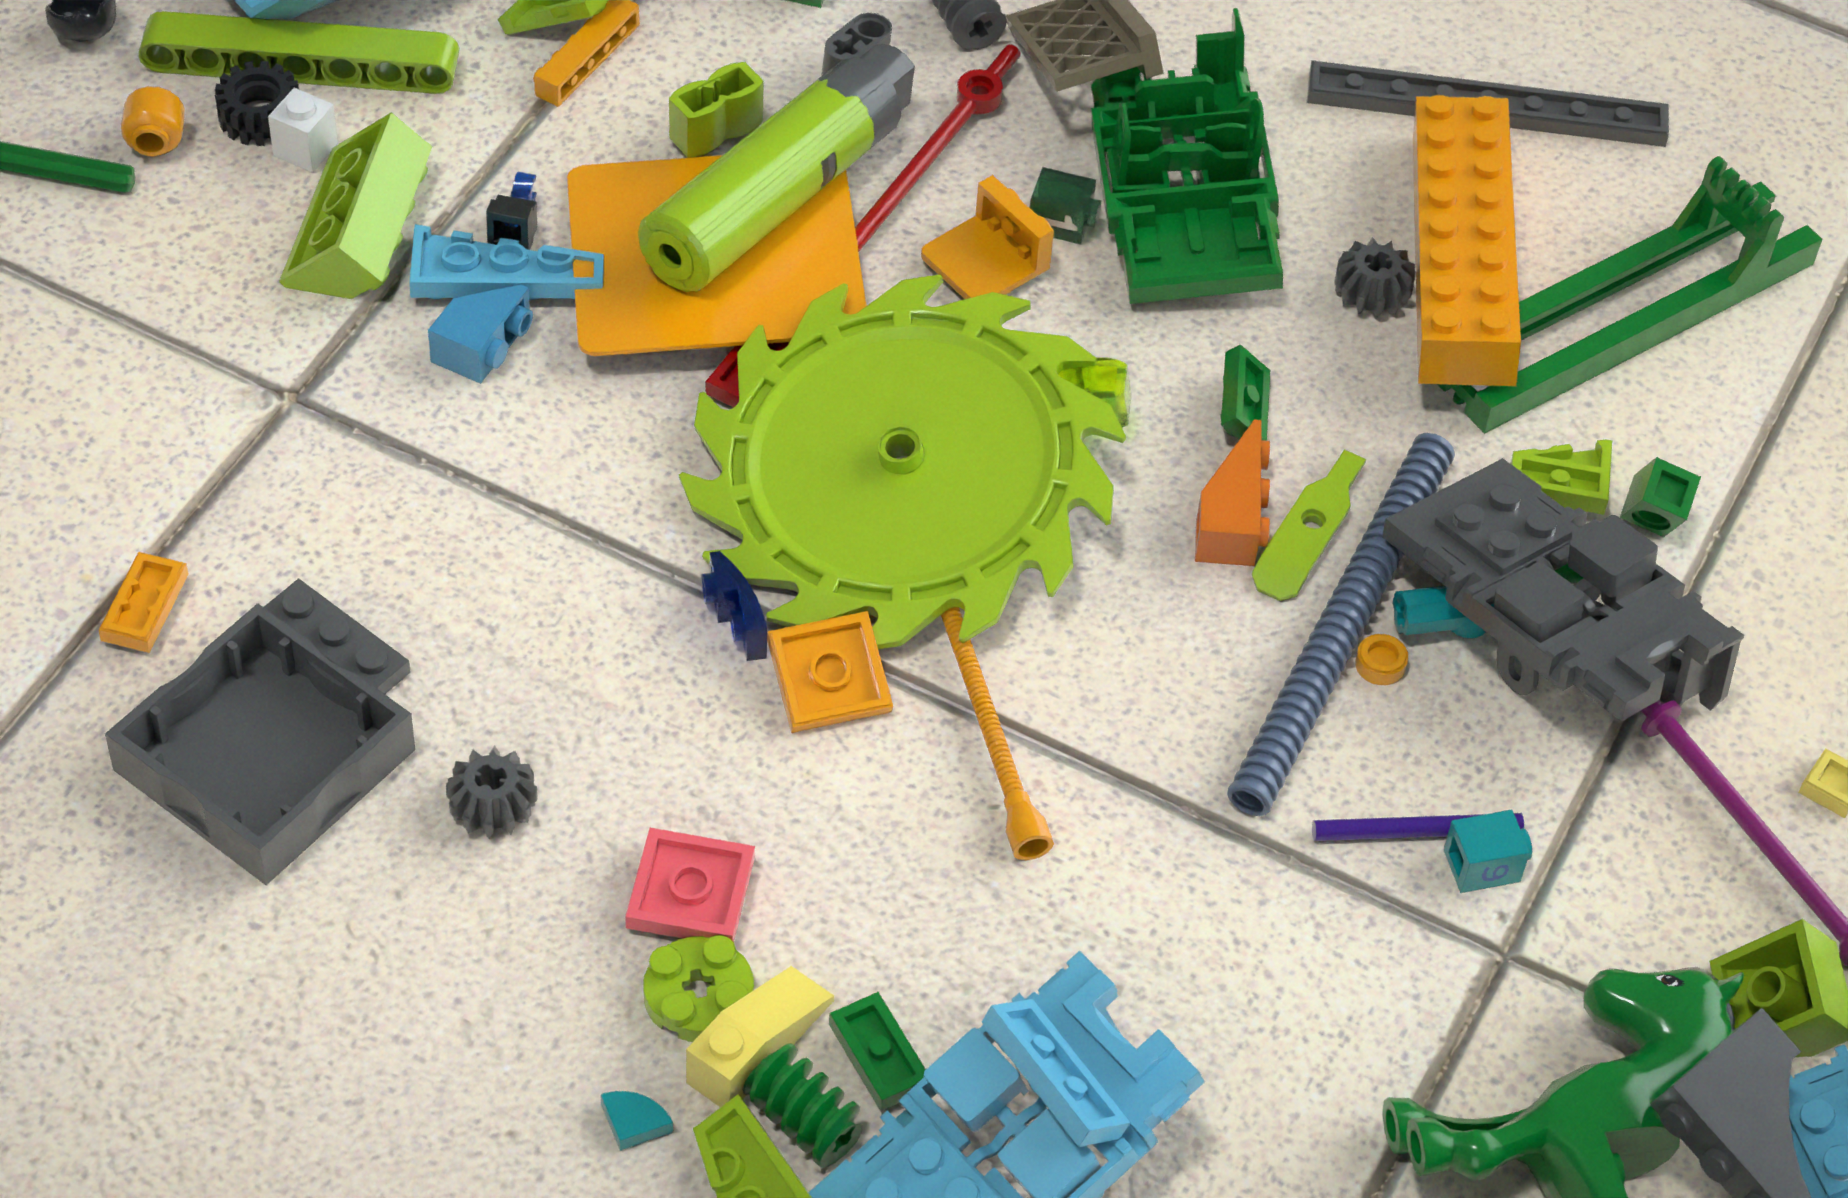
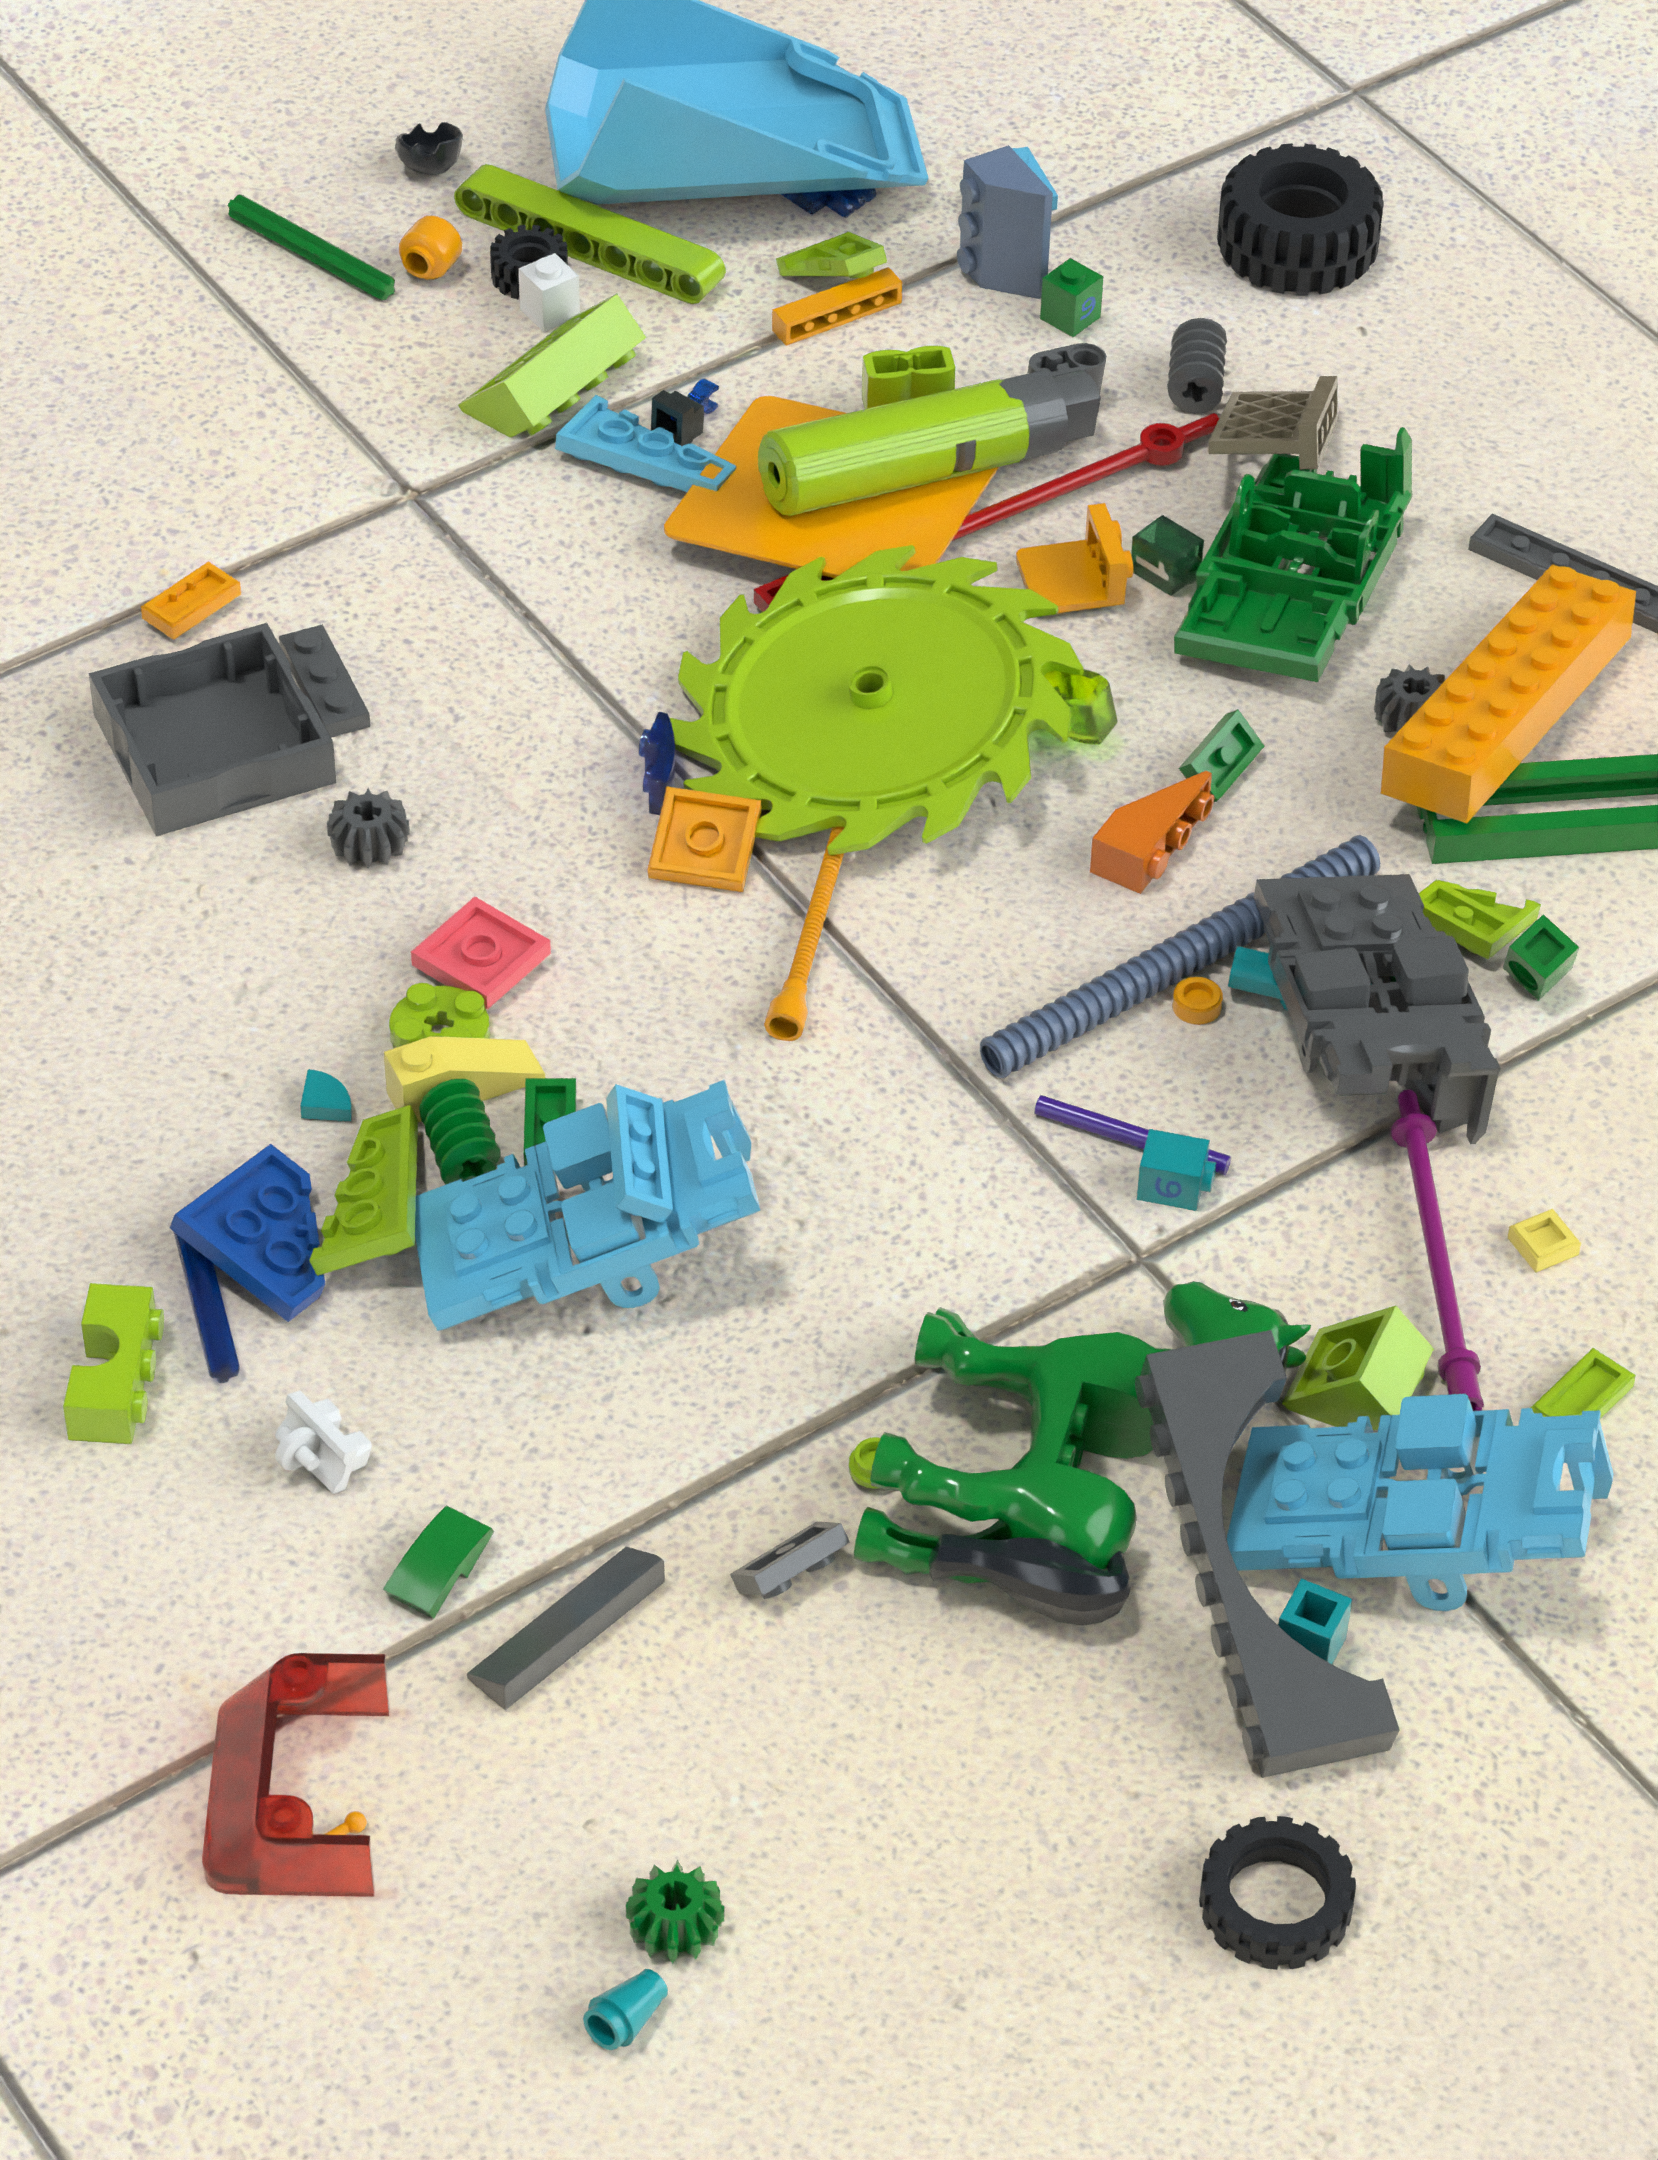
camera: 30 degrees right, 5 degrees down
(478, 330) = (593, 490): dark azure slope -> none
(1298, 547) = (1188, 884): lime piece -> none

